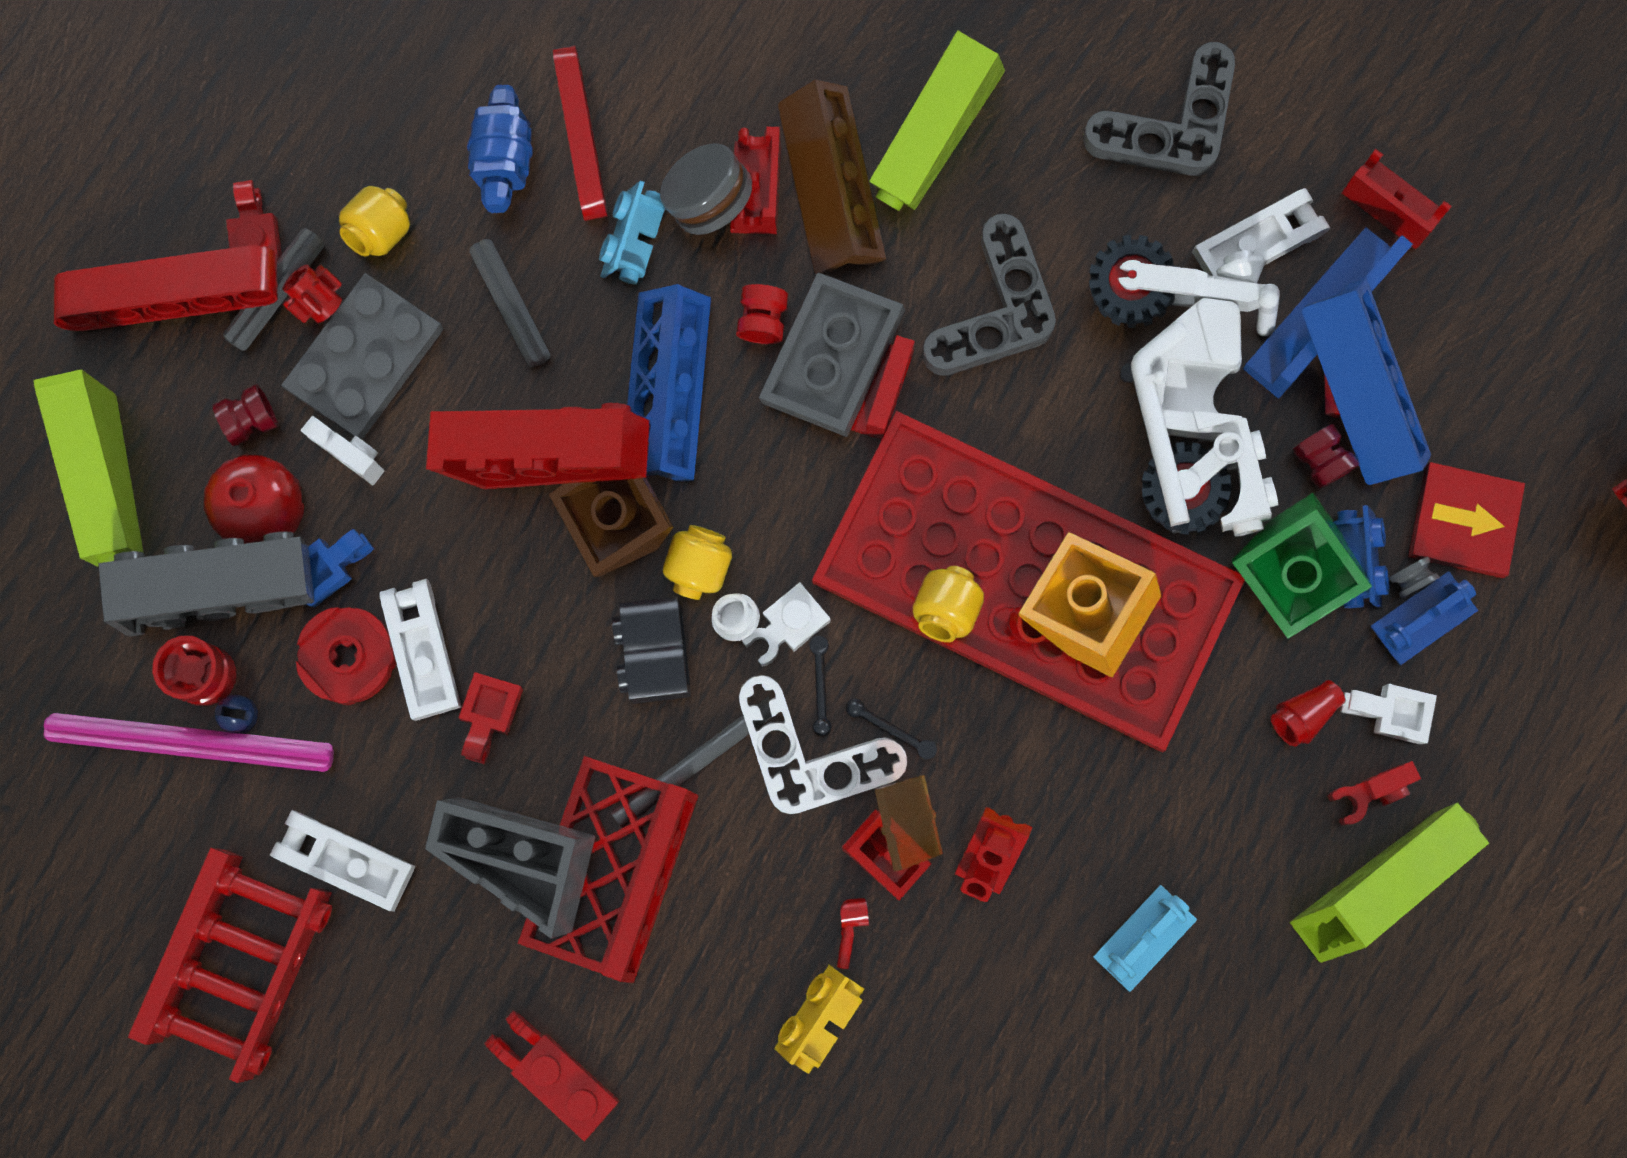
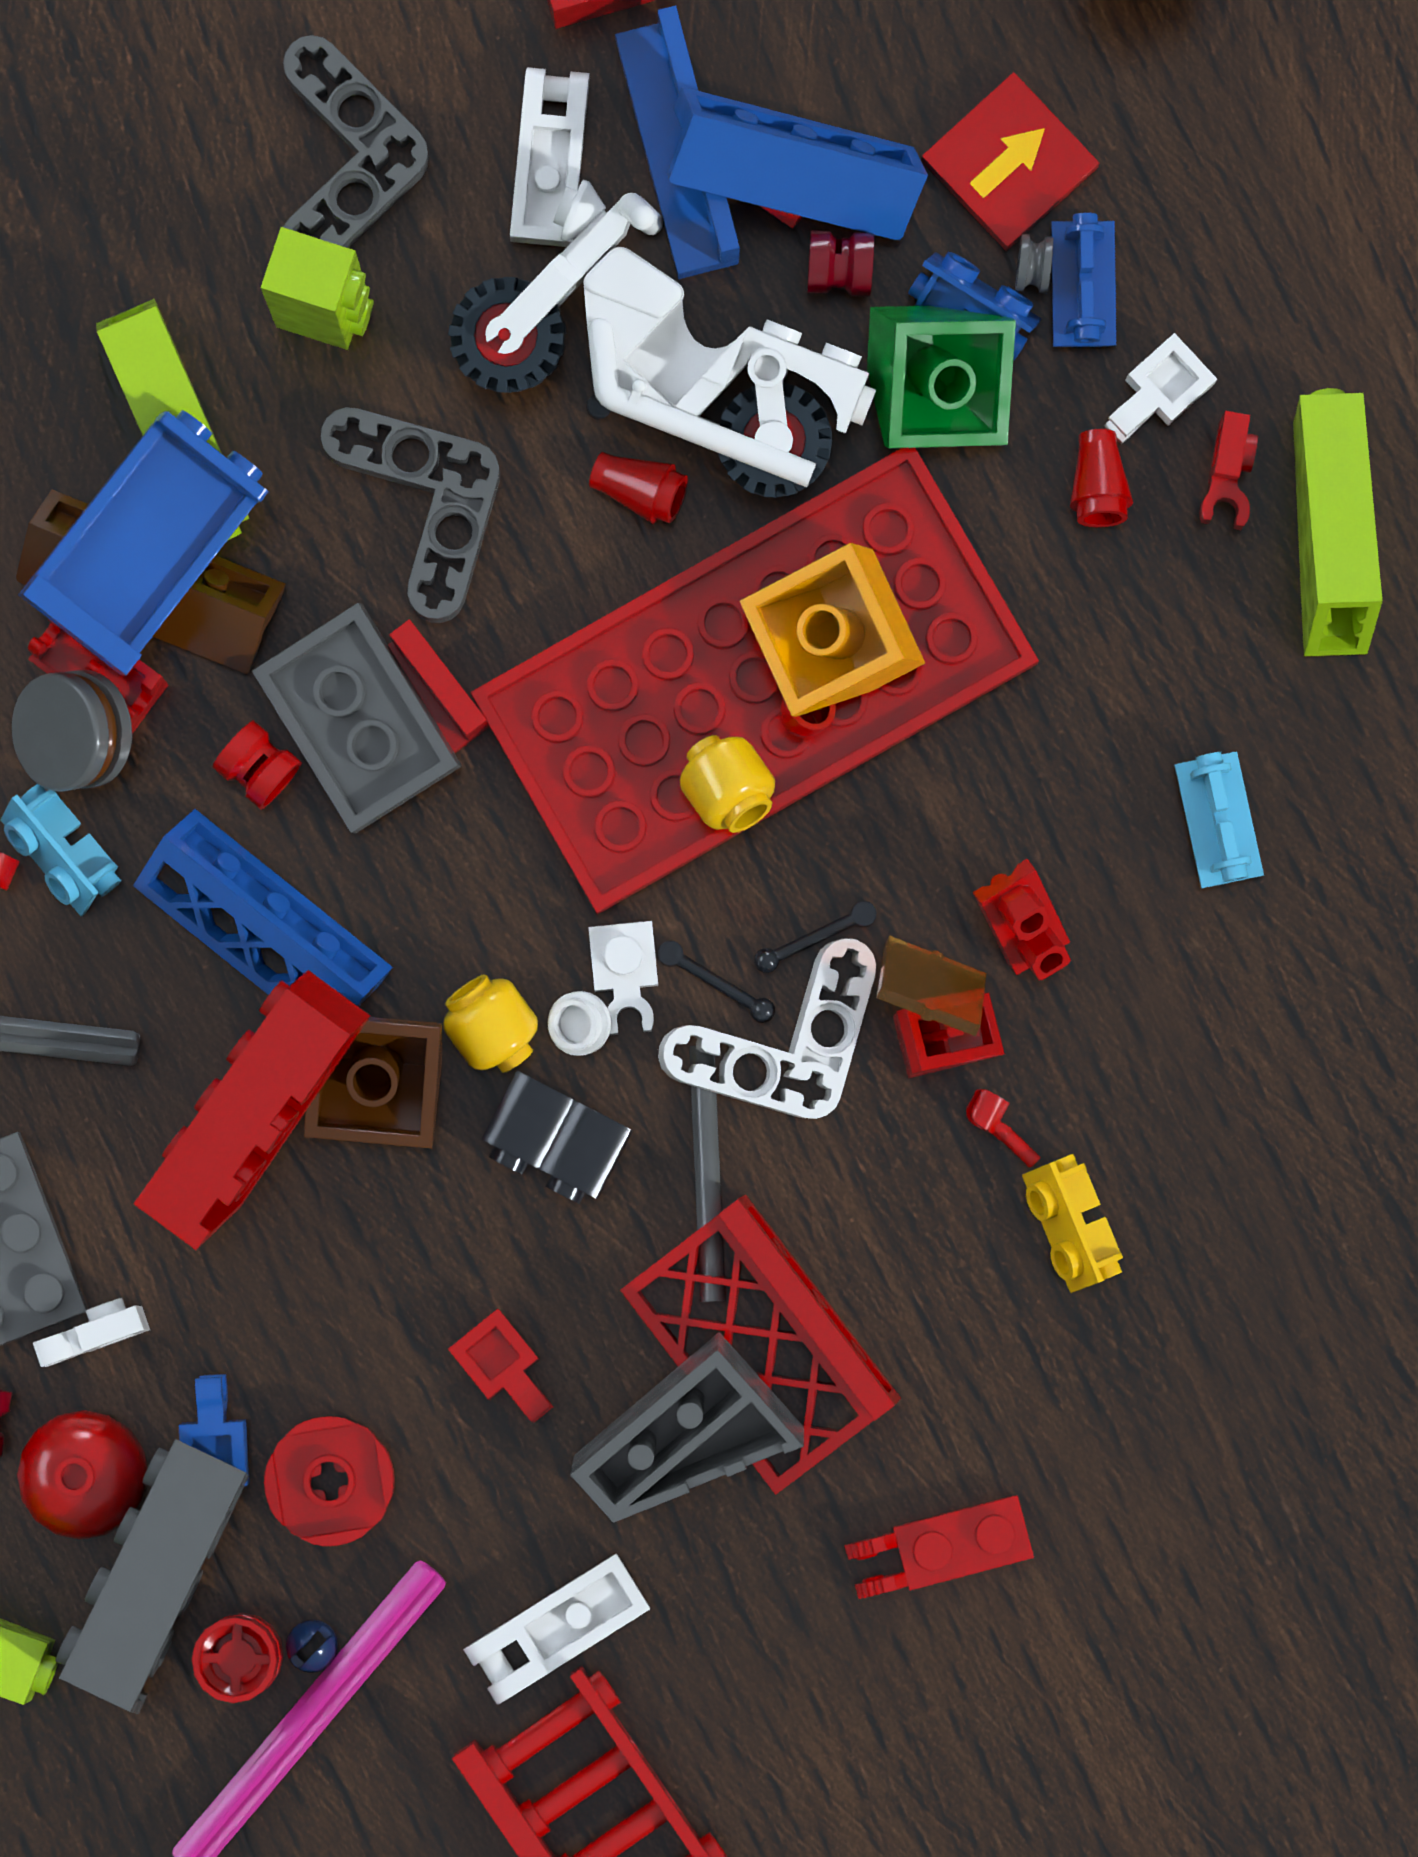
camera: 65 degrees left, 5 degrees up
(420, 651) = (381, 1394): white plate -> none
(849, 146) = (144, 540): none -> blue panel
(1078, 143) = (316, 289): none -> lime brick
(1099, 432) = (642, 486): none -> red cone

